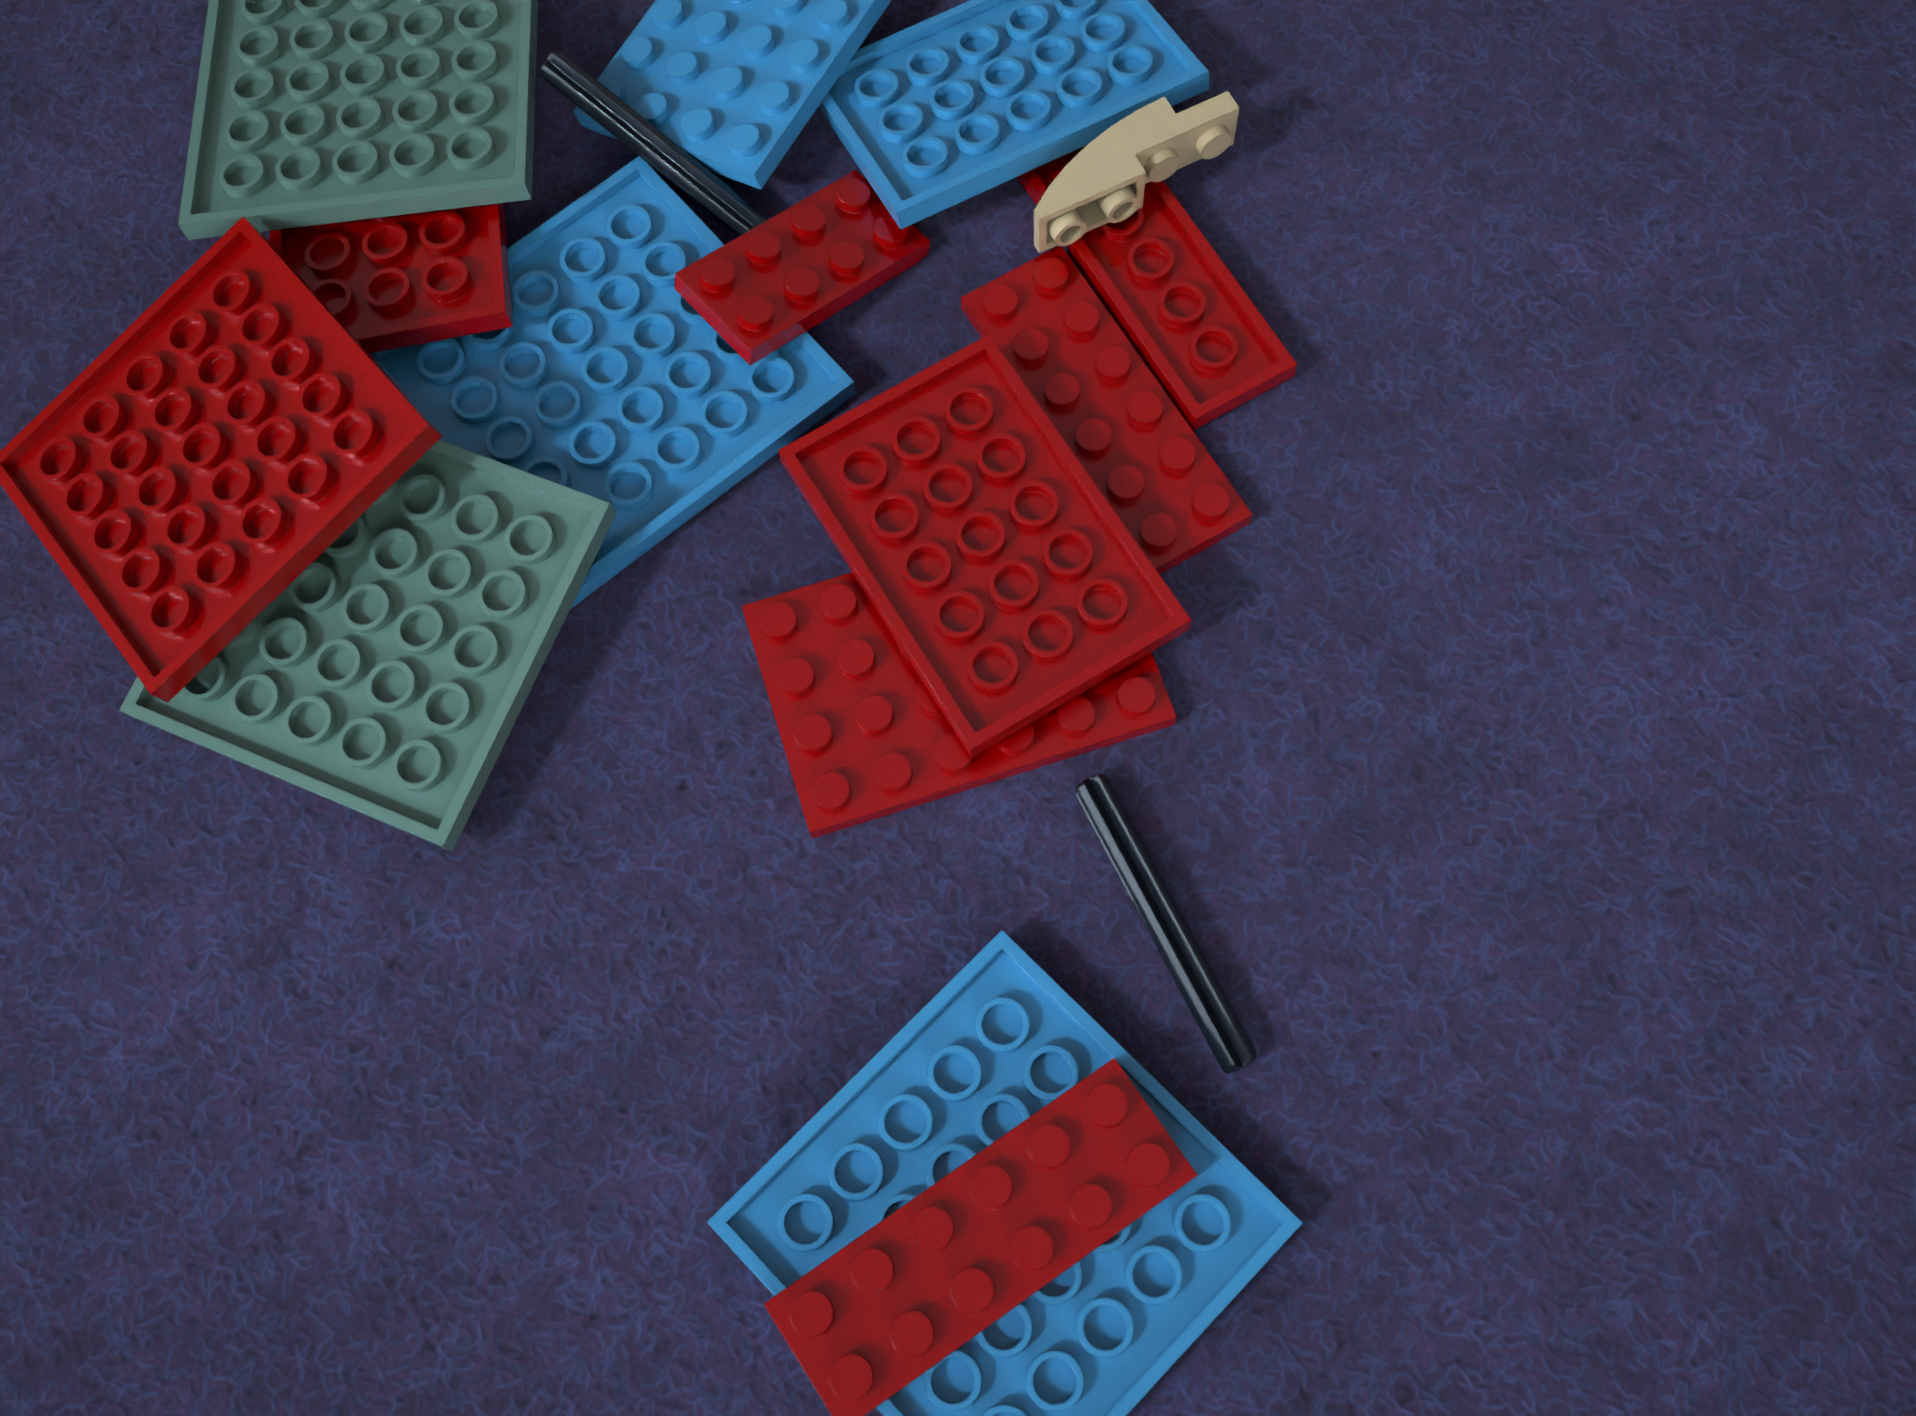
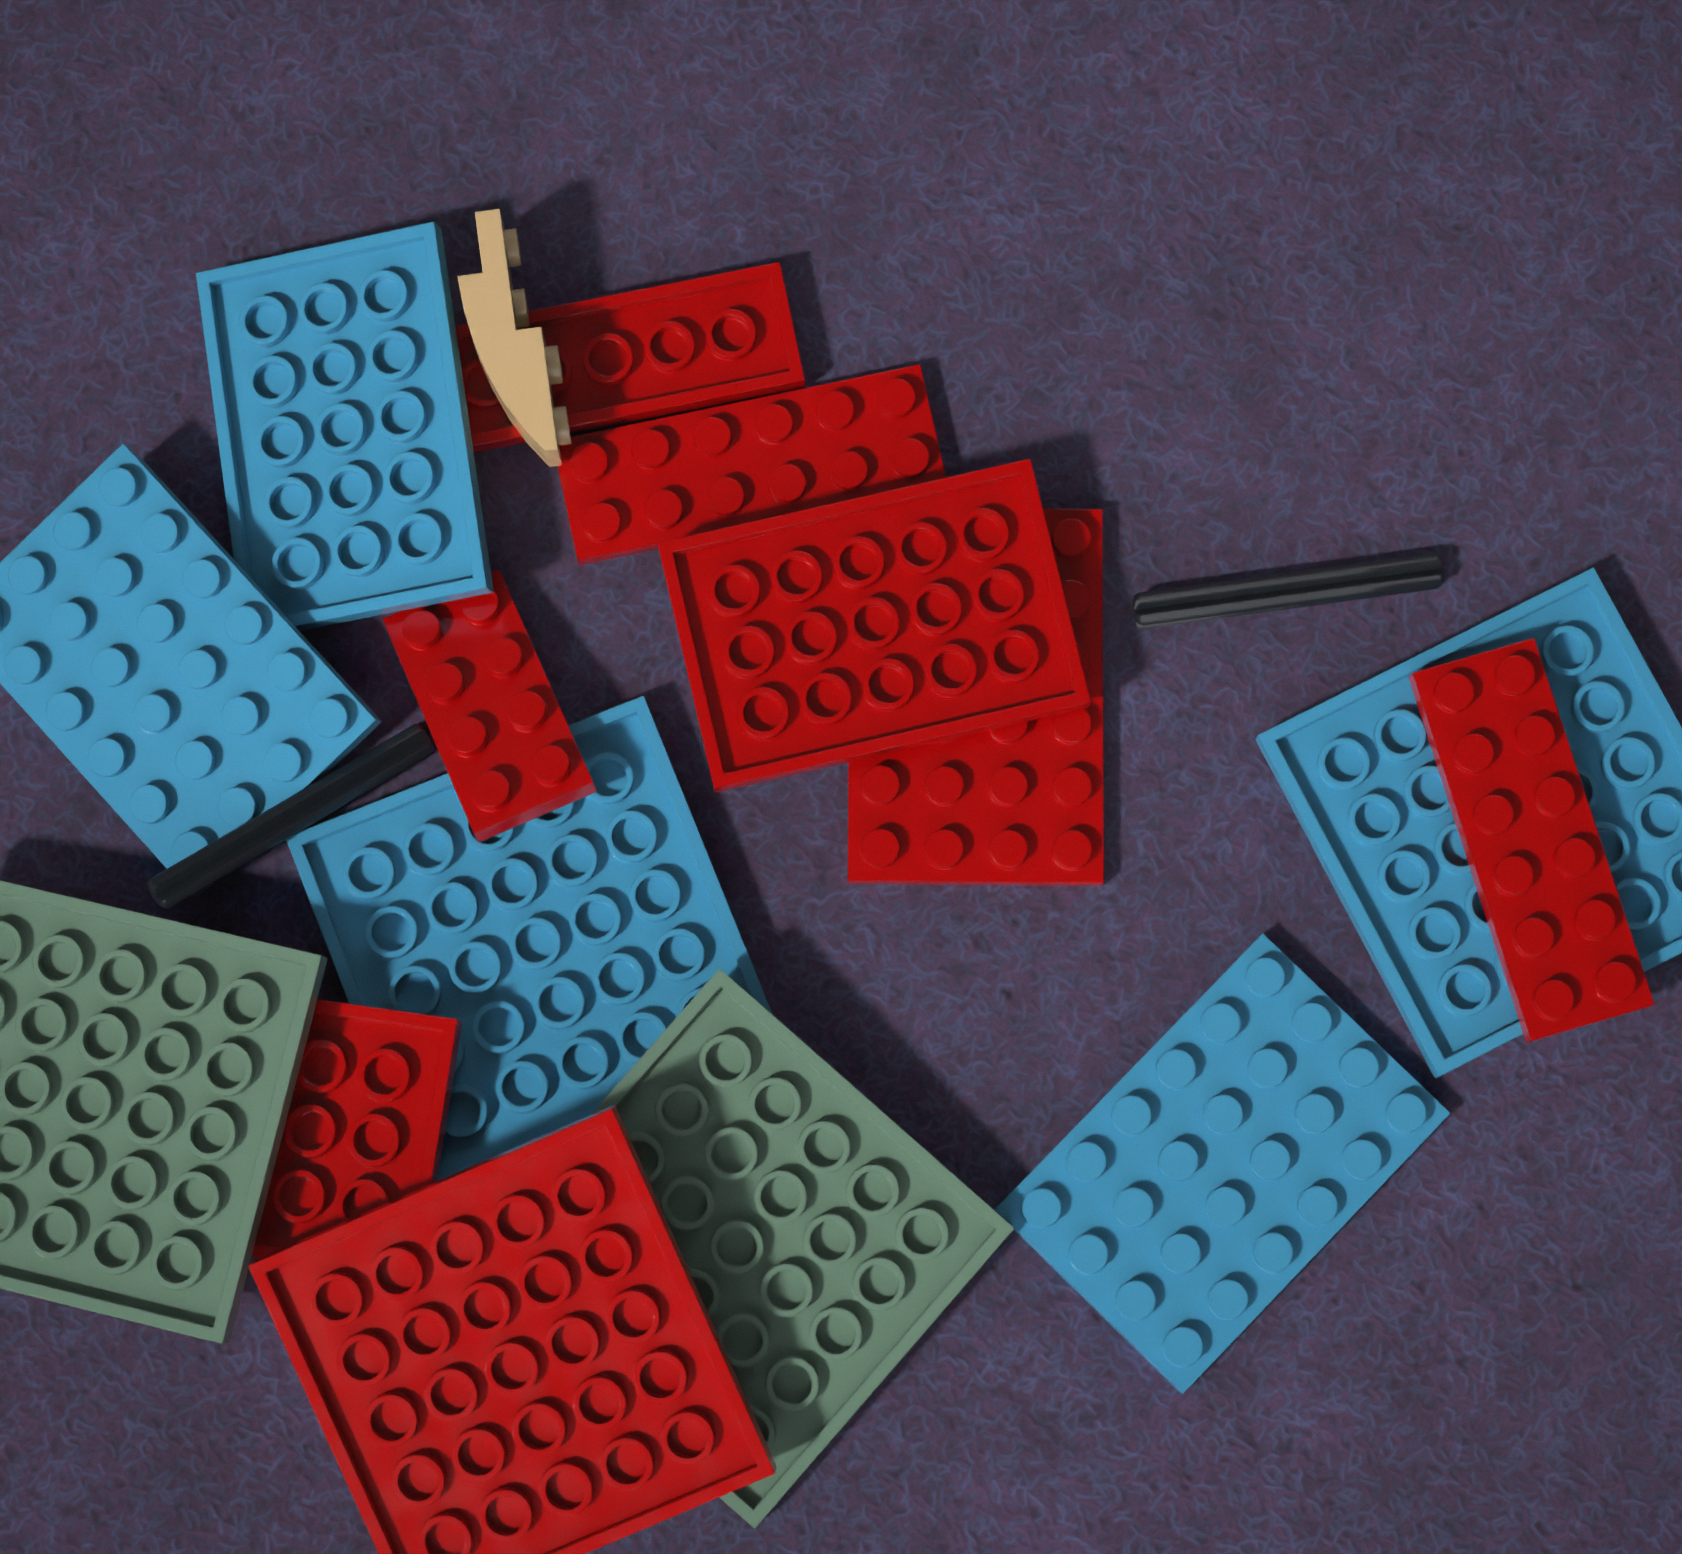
camera: 80 degrees left, 10 degrees up
(571, 1038) = (1222, 1163): none -> dark azure plate

